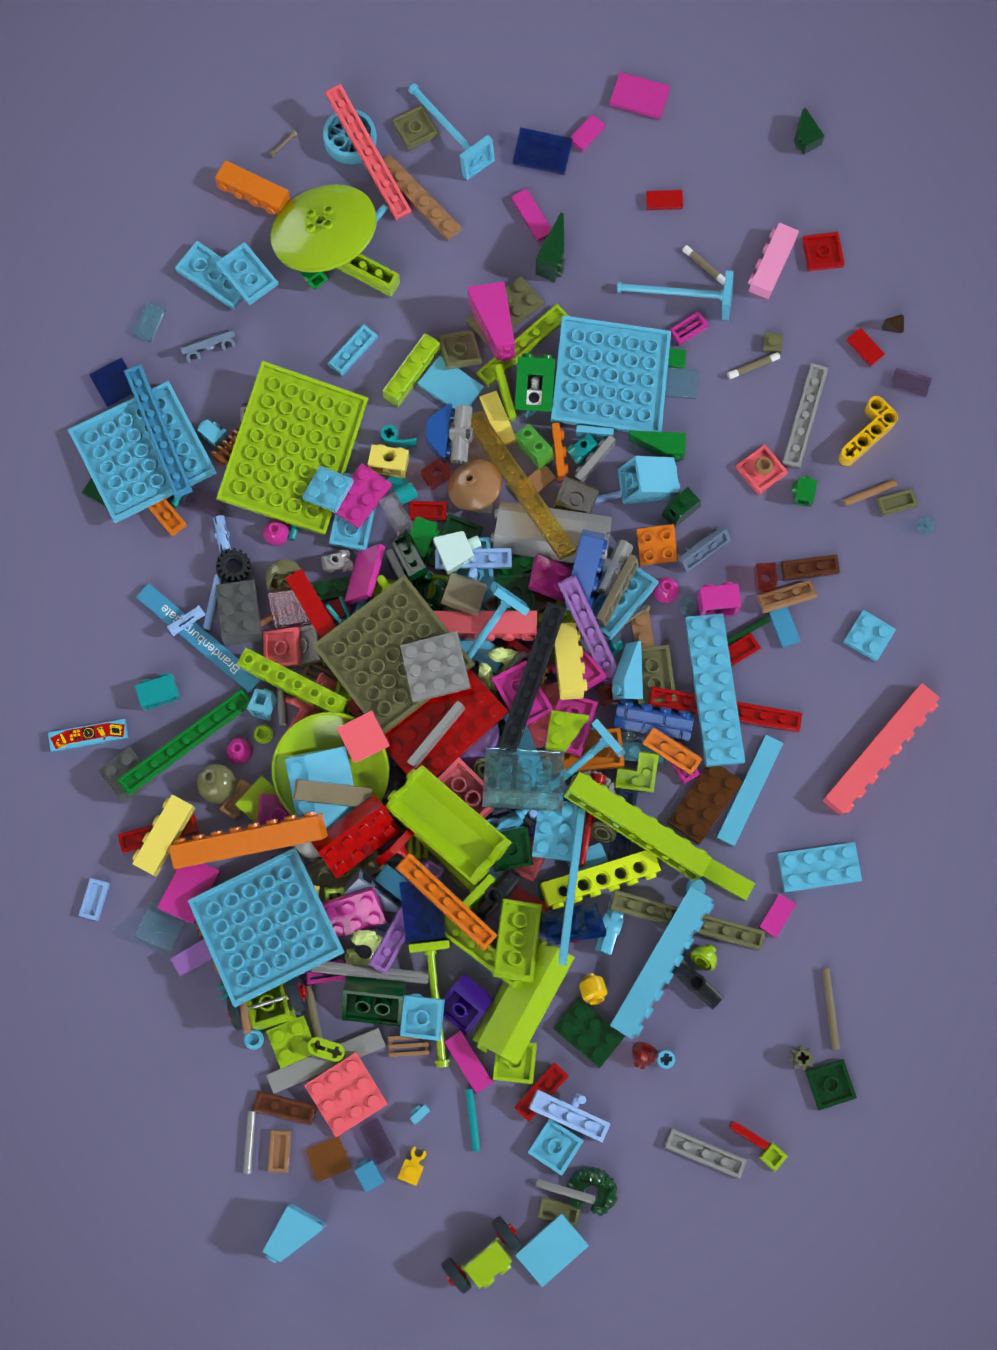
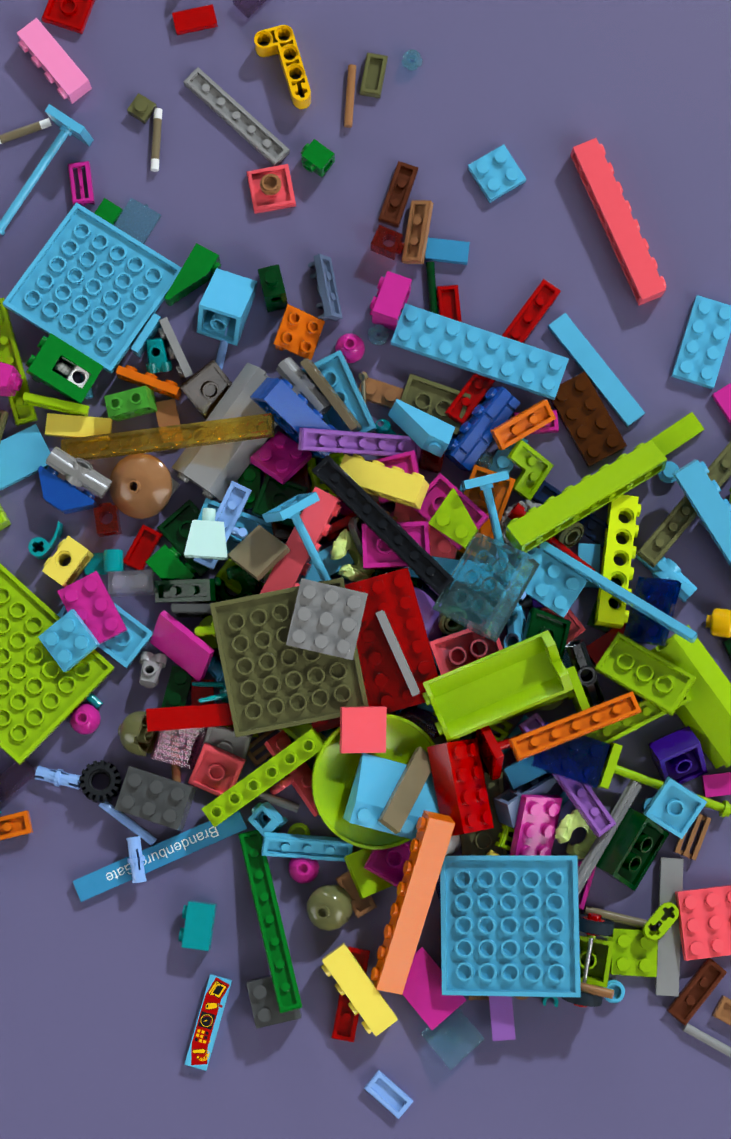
camera: 65 degrees left, 5 degrees up
(254, 741) = (305, 846): none -> medium azure tile

